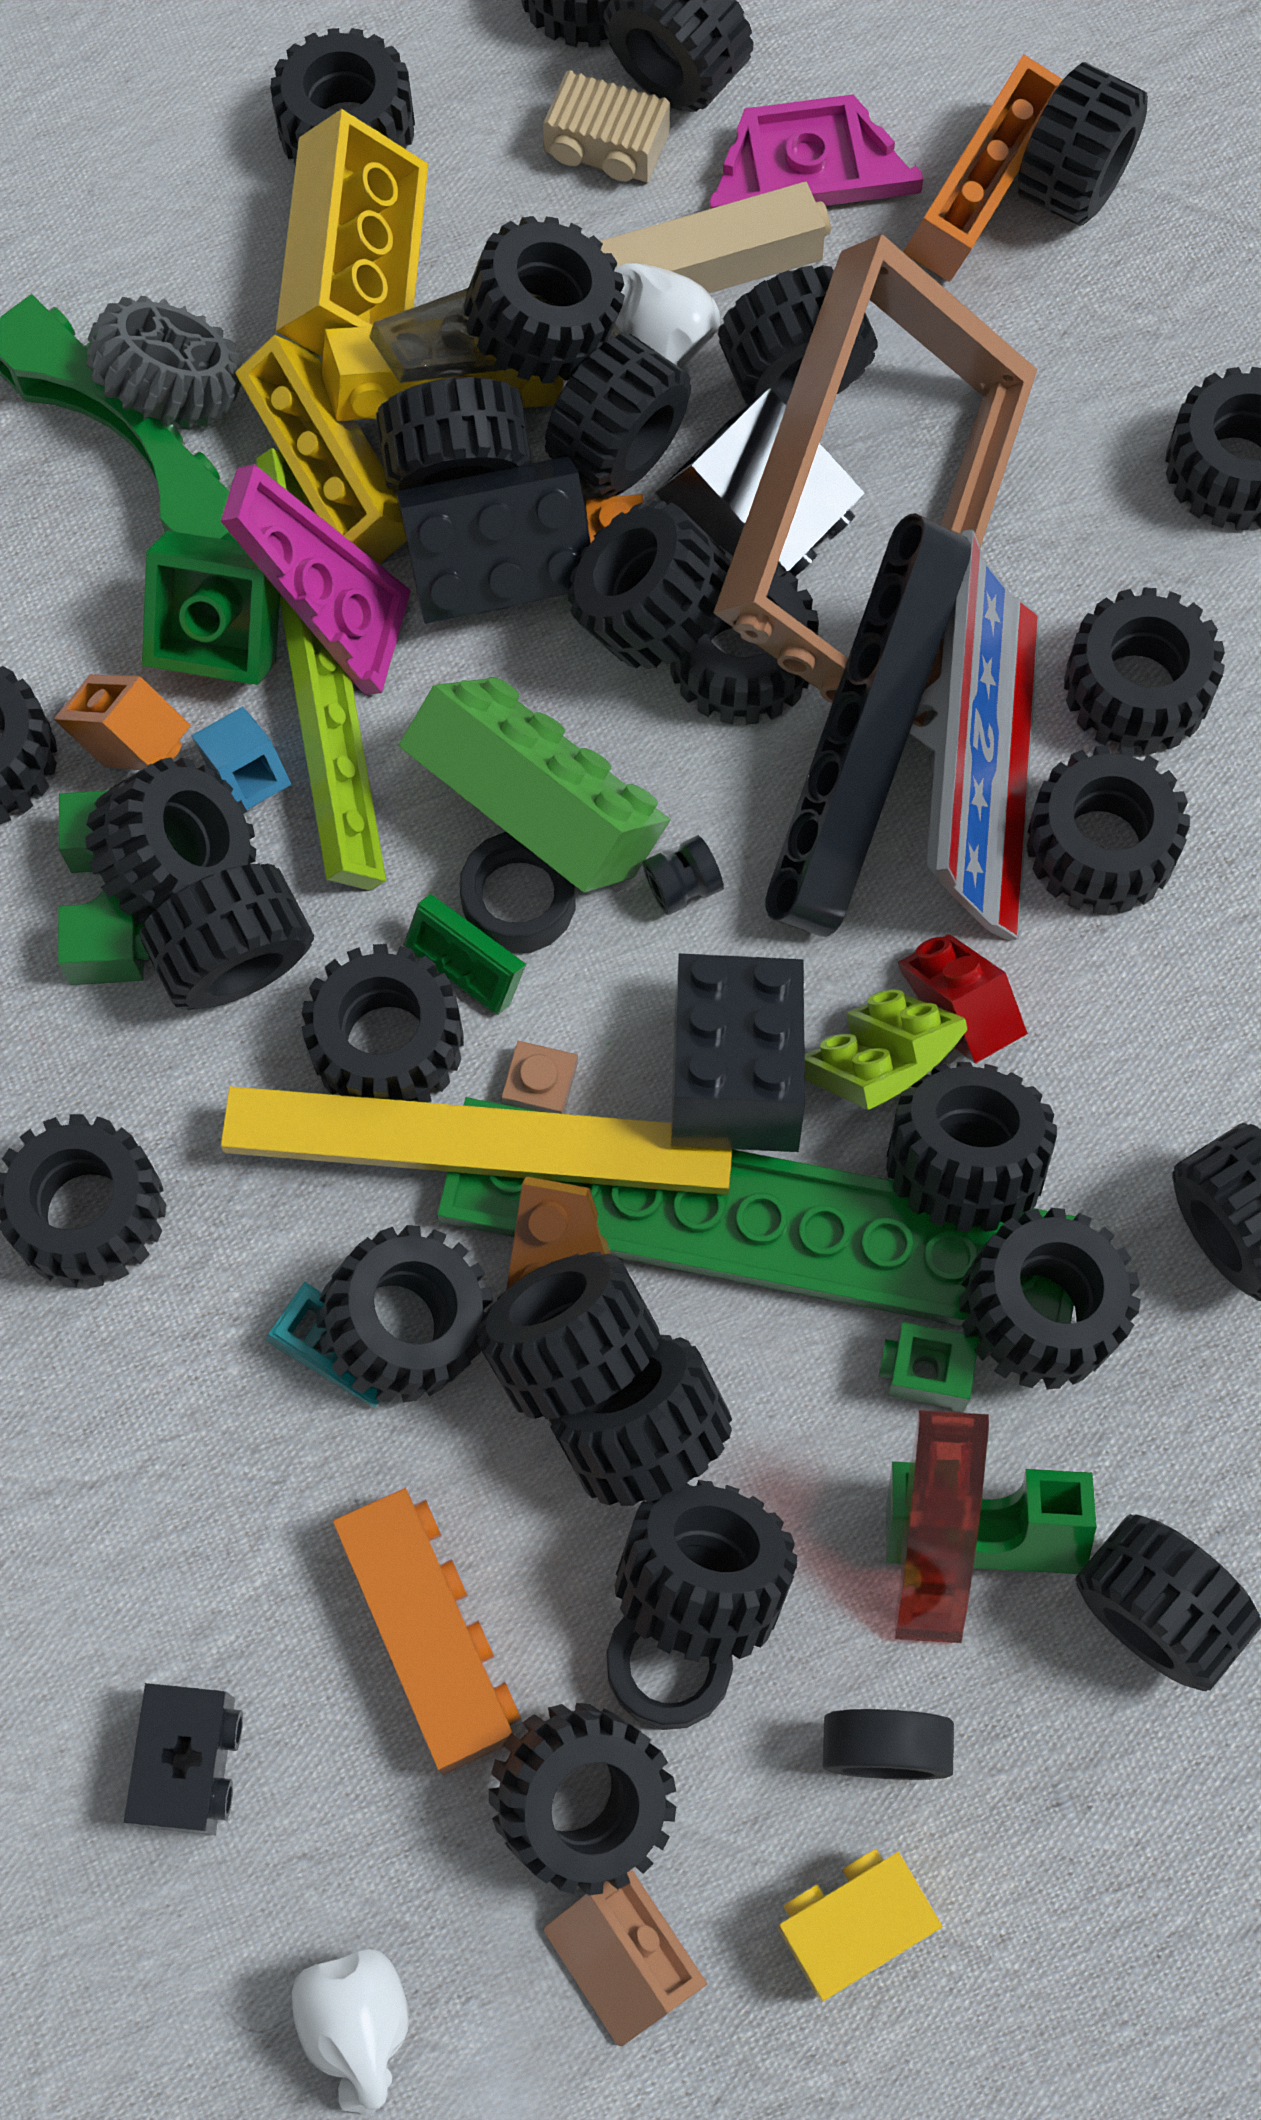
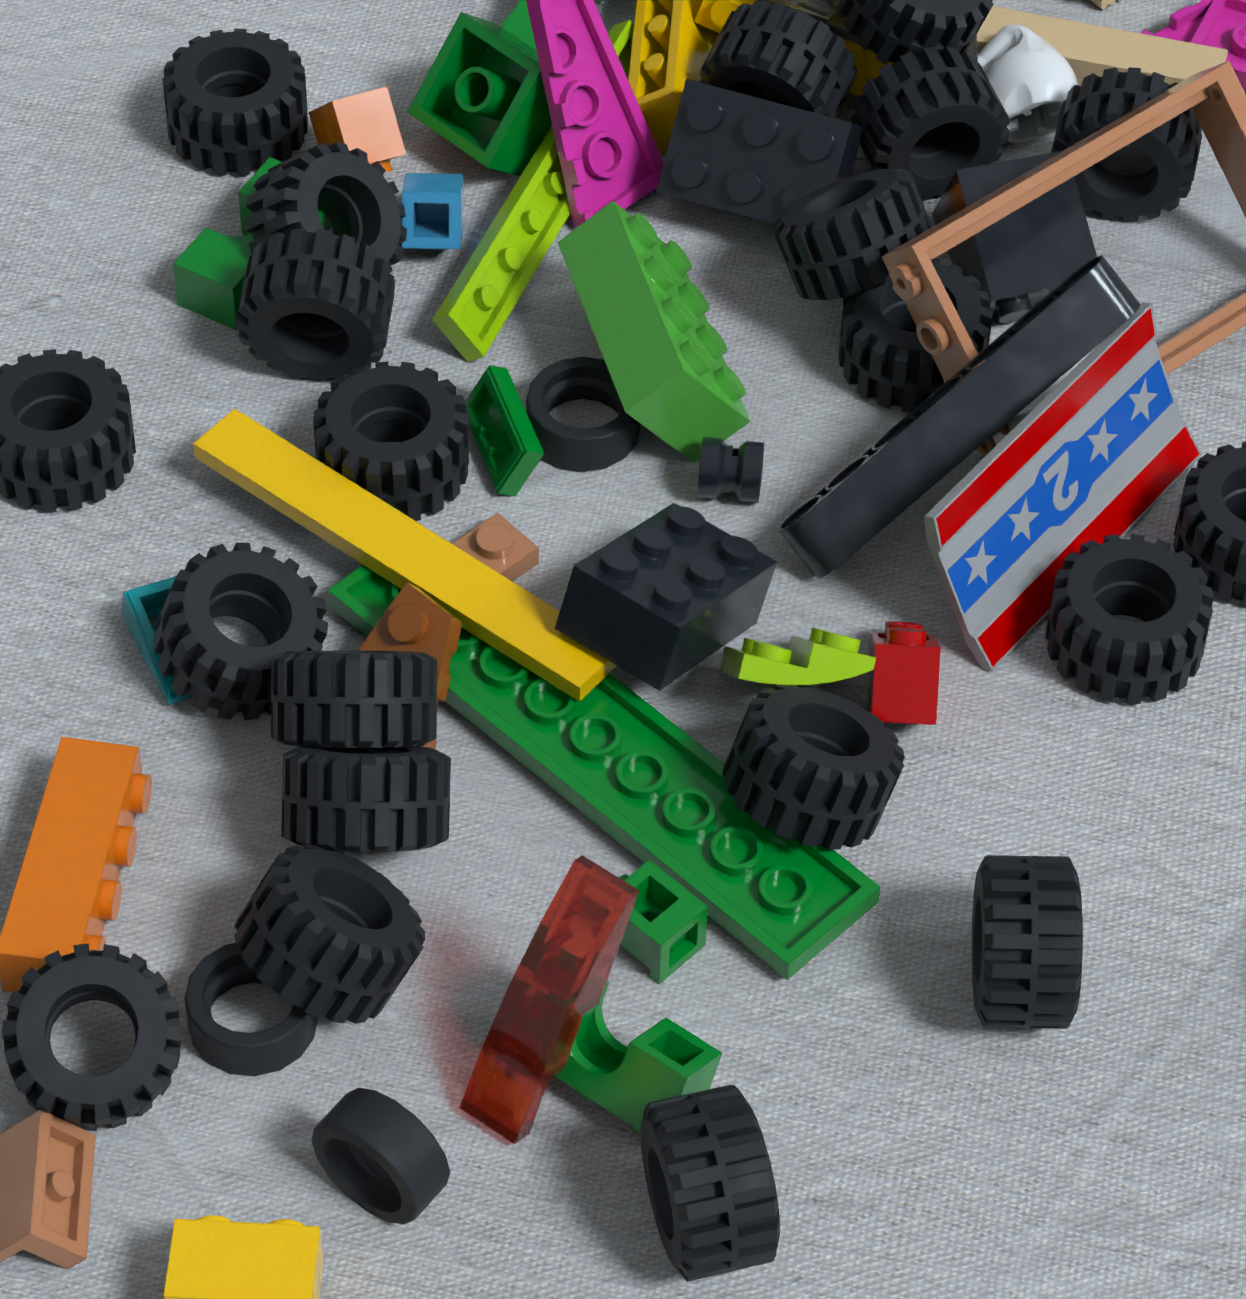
camera: 30 degrees right, 20 degrees down
(1078, 1262) = (771, 938): black tyre -> none

